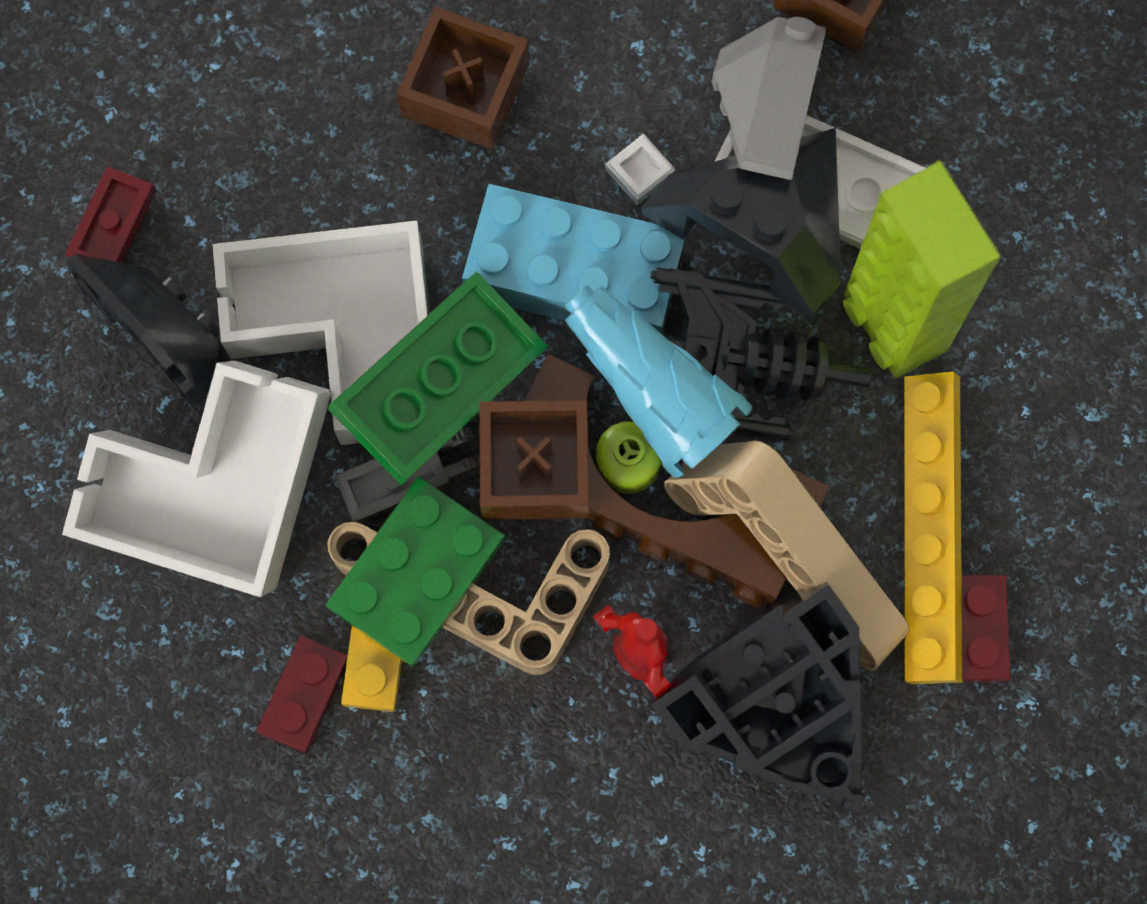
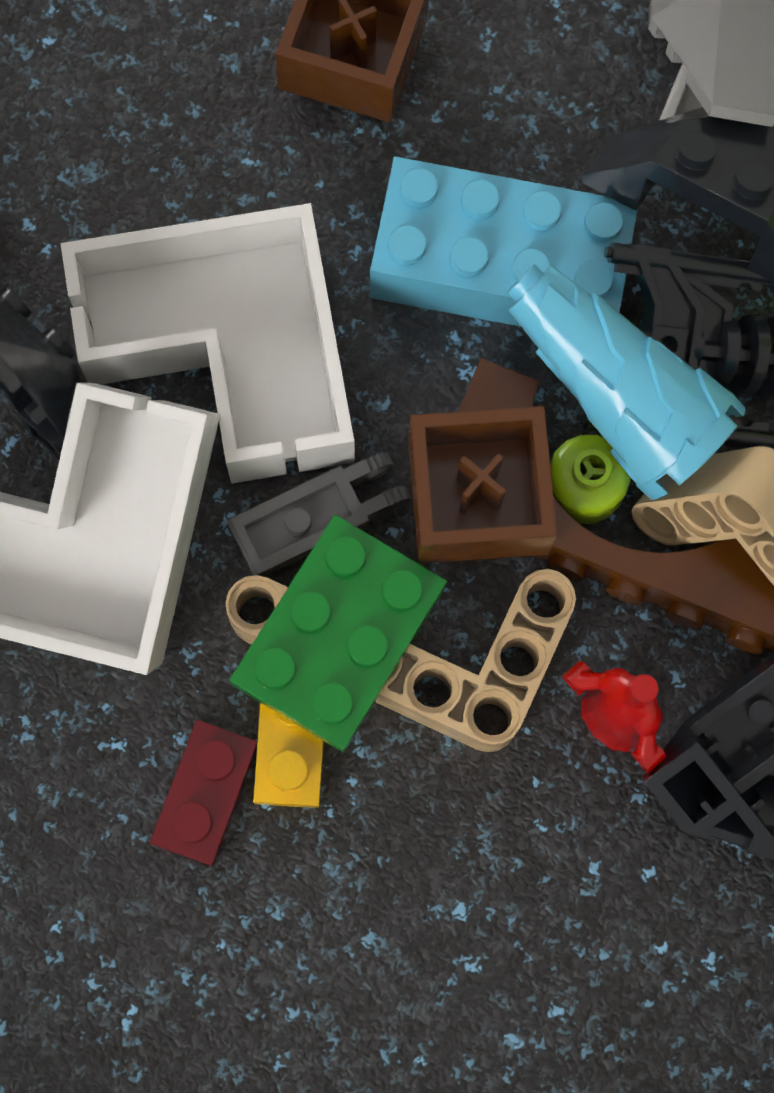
camera: 10 degrees left, 0 degrees up
(437, 378) = (350, 392): green plate -> none
(639, 169) = (568, 138): white tile -> none

